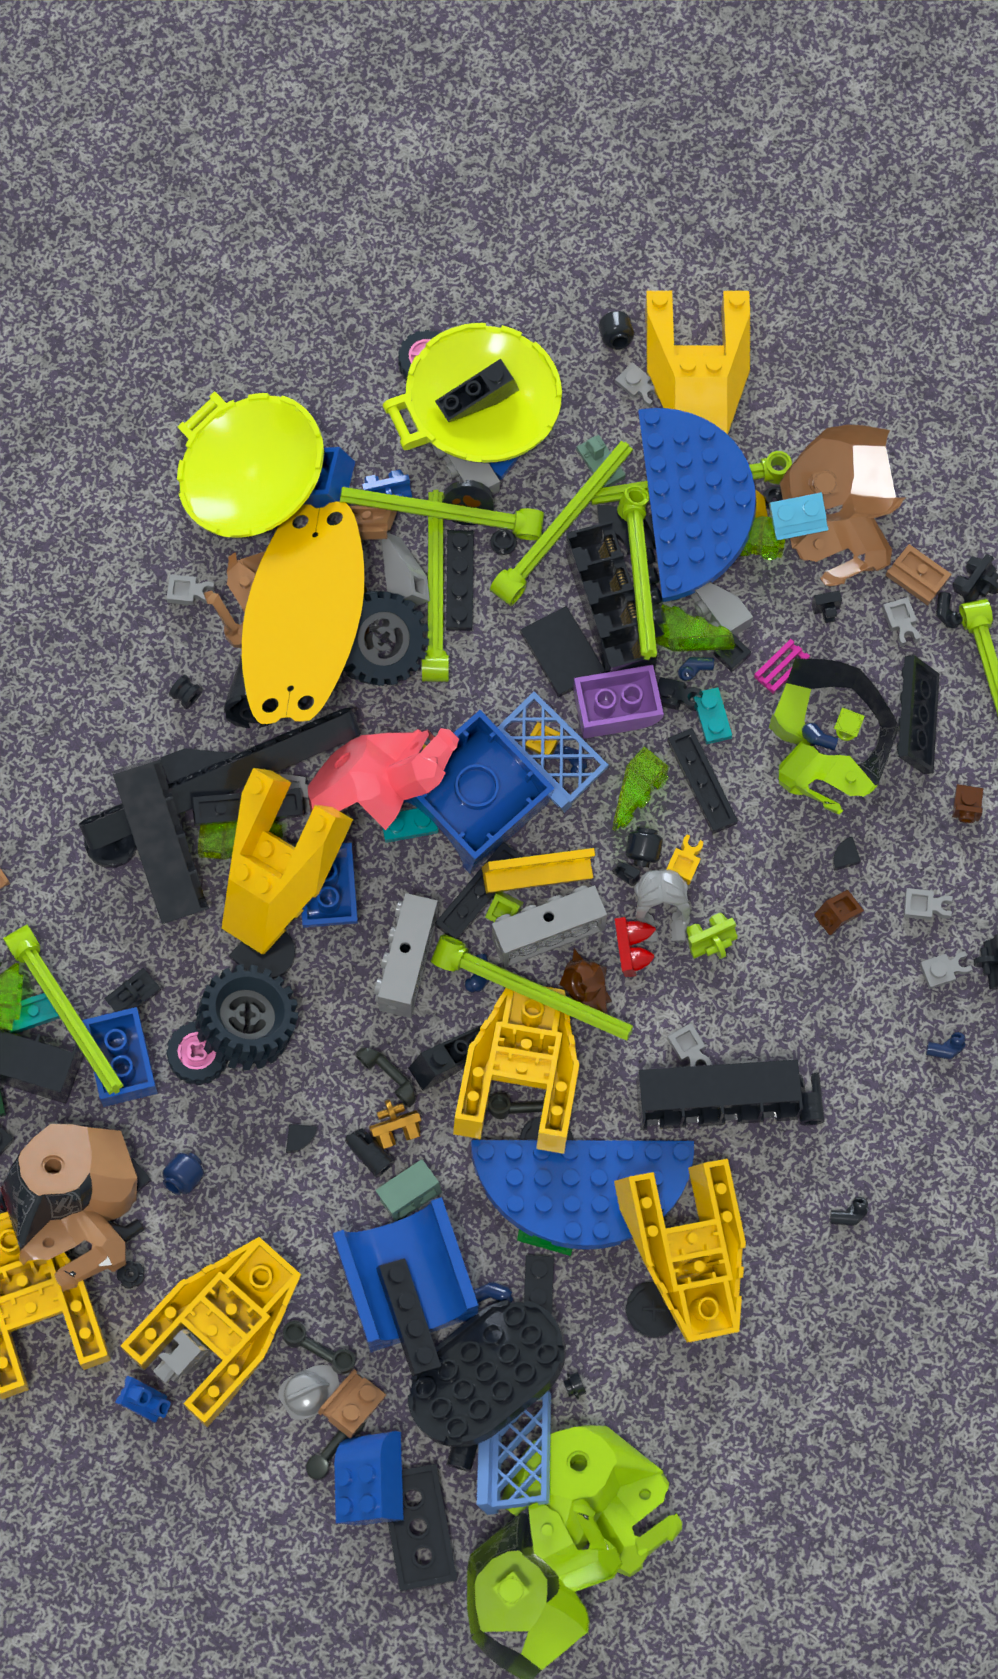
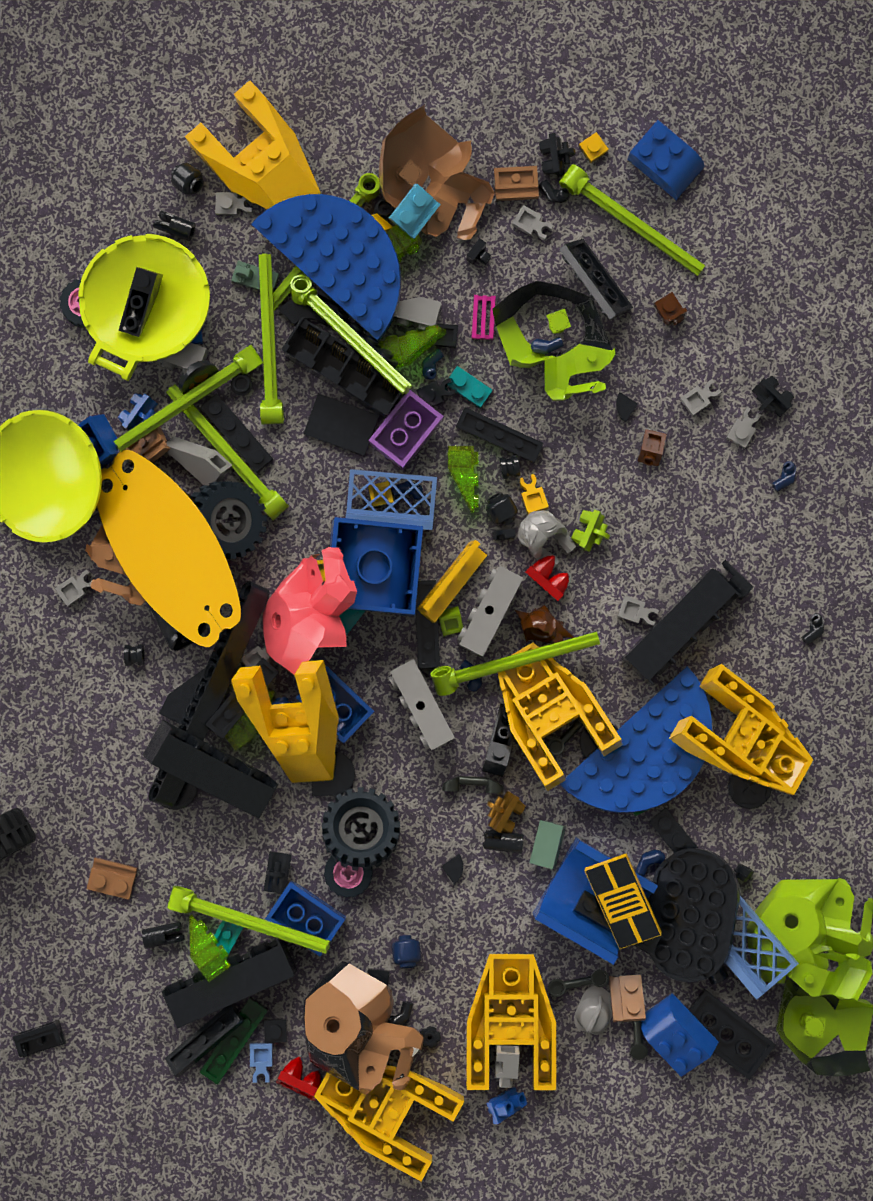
camera: 40 degrees left, 15 degrees up
(431, 1291) = (623, 901): none -> black tile
(569, 361) = (175, 225): none -> black hinge
(686, 816) = (509, 467): none -> black wheel

